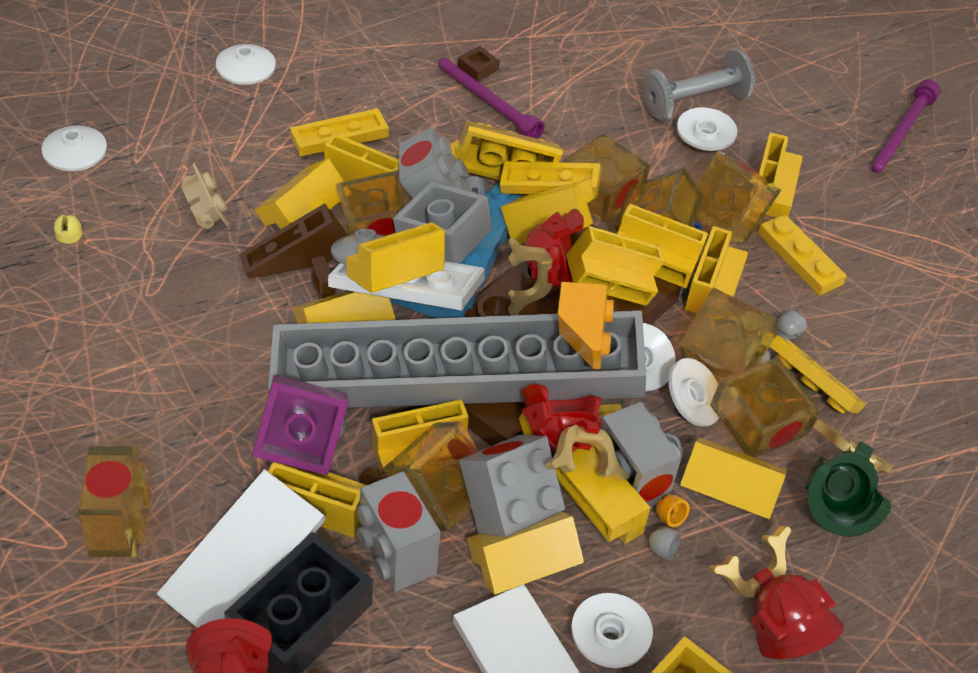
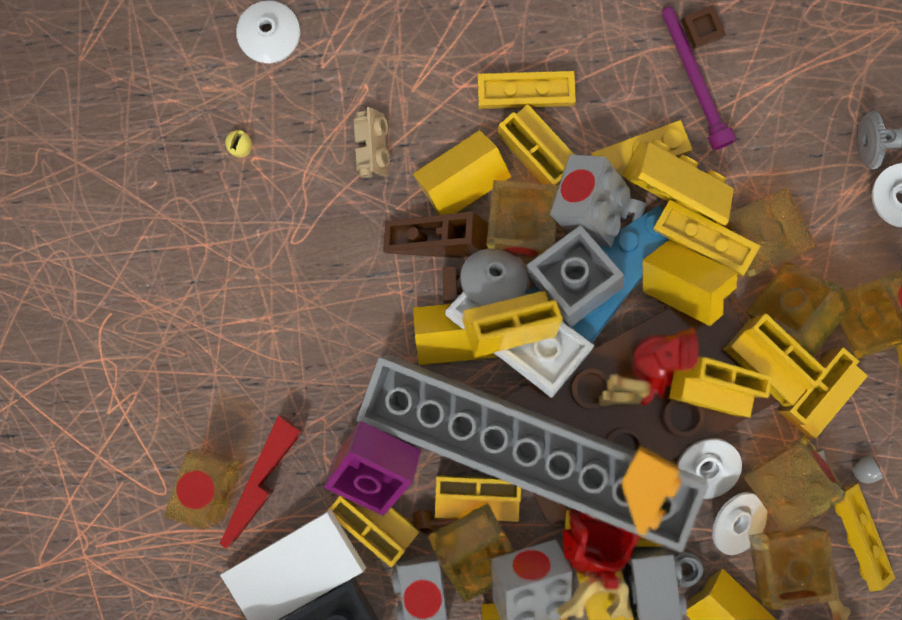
camera: 25 degrees right, 35 degrees up
(176, 499) = (255, 494): none -> red slope

